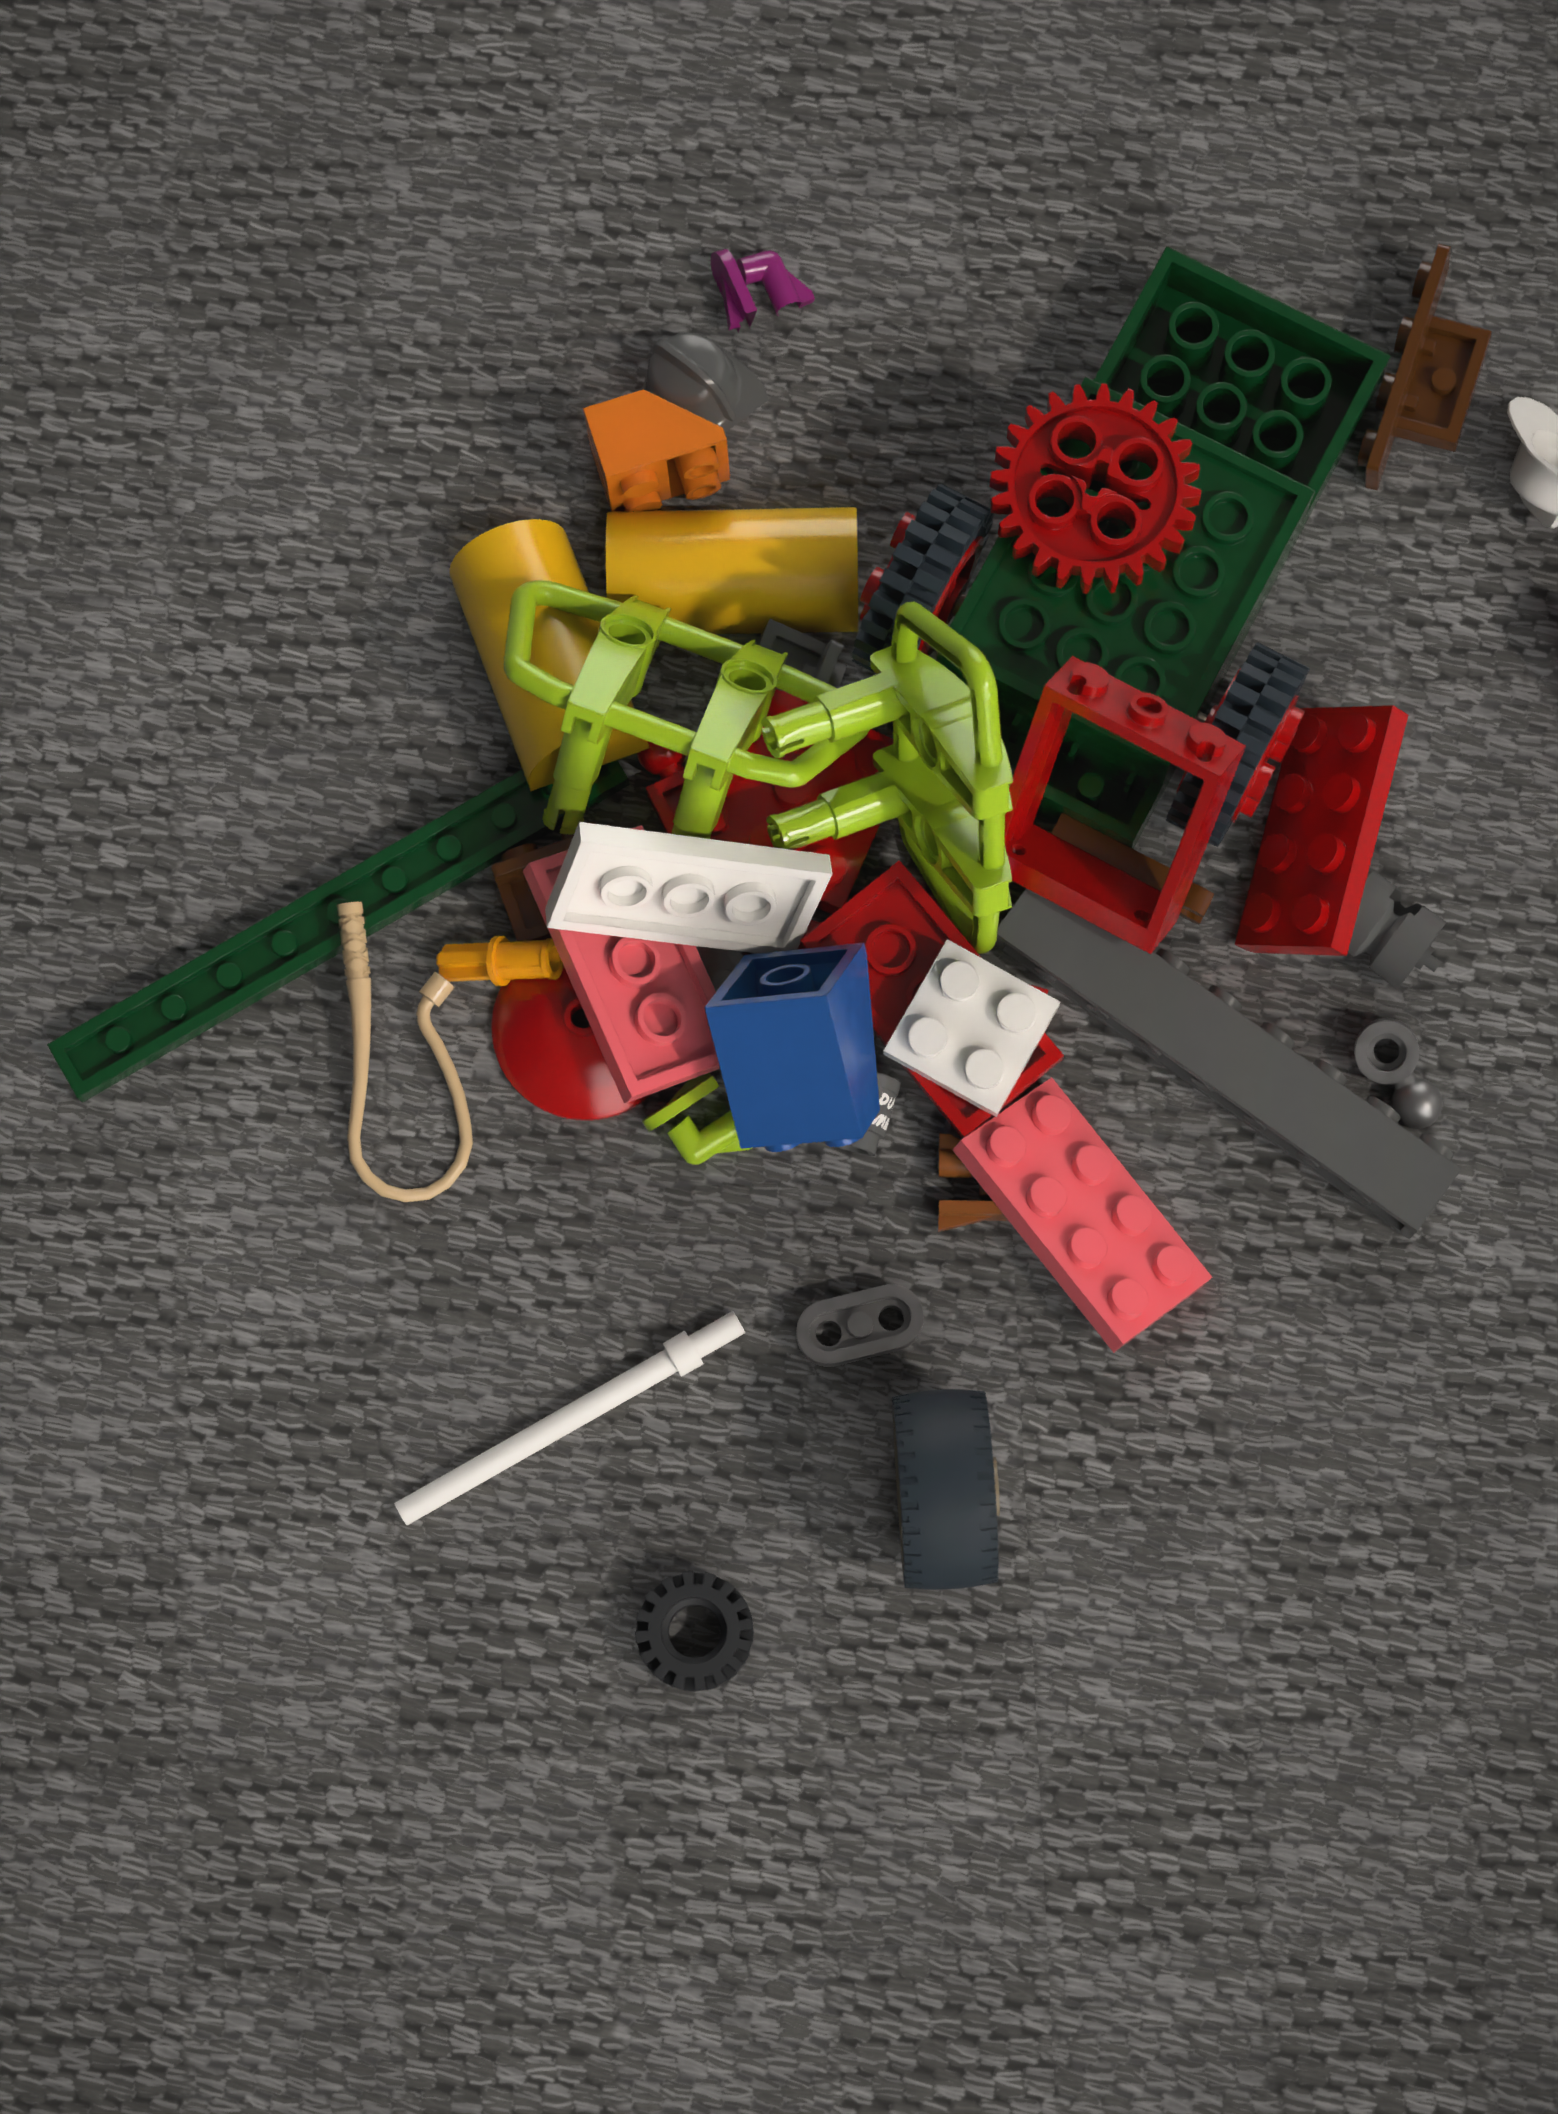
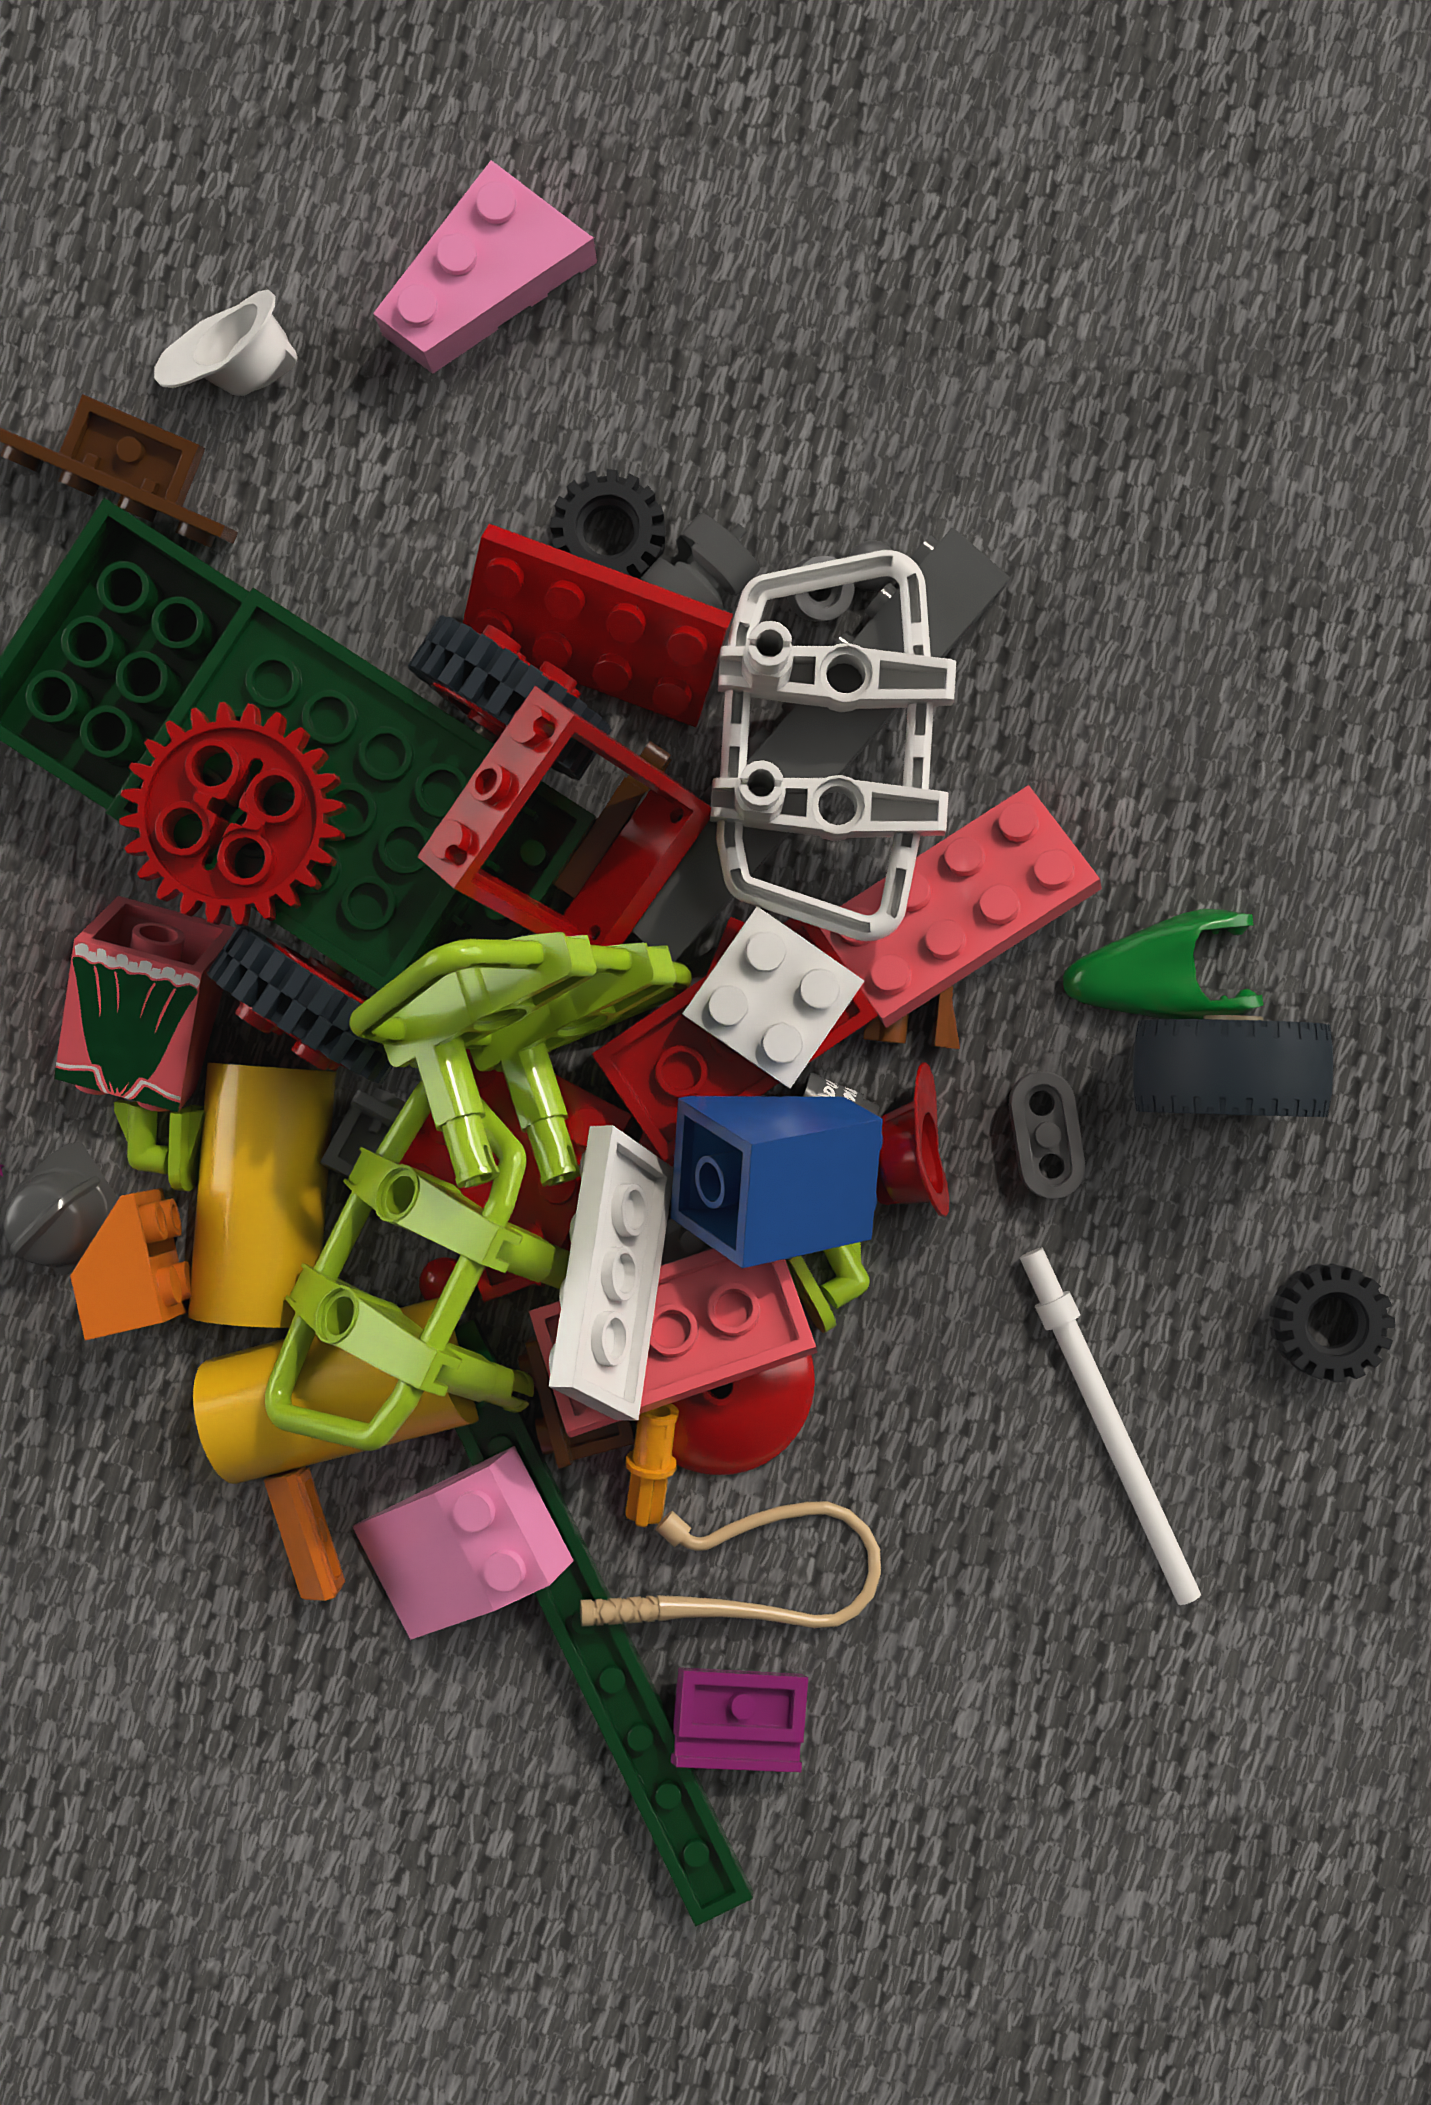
camera: 90 degrees left, 10 degrees up
(252, 1069) = (739, 1720): none -> magenta plate
(406, 642) = (305, 1534): none -> orange slope
(409, 788) = (465, 1545): none -> bright pink slope
(766, 491) = (178, 1159): none -> lime piece
(835, 1187) = (910, 1155): none -> red piece
(902, 431) = (140, 1004): none -> slope
(1036, 1420) = (1156, 970): none -> green animal
(1293, 1027) = (756, 795): none -> white piece
(1456, 832) = (615, 494): none -> black tyre

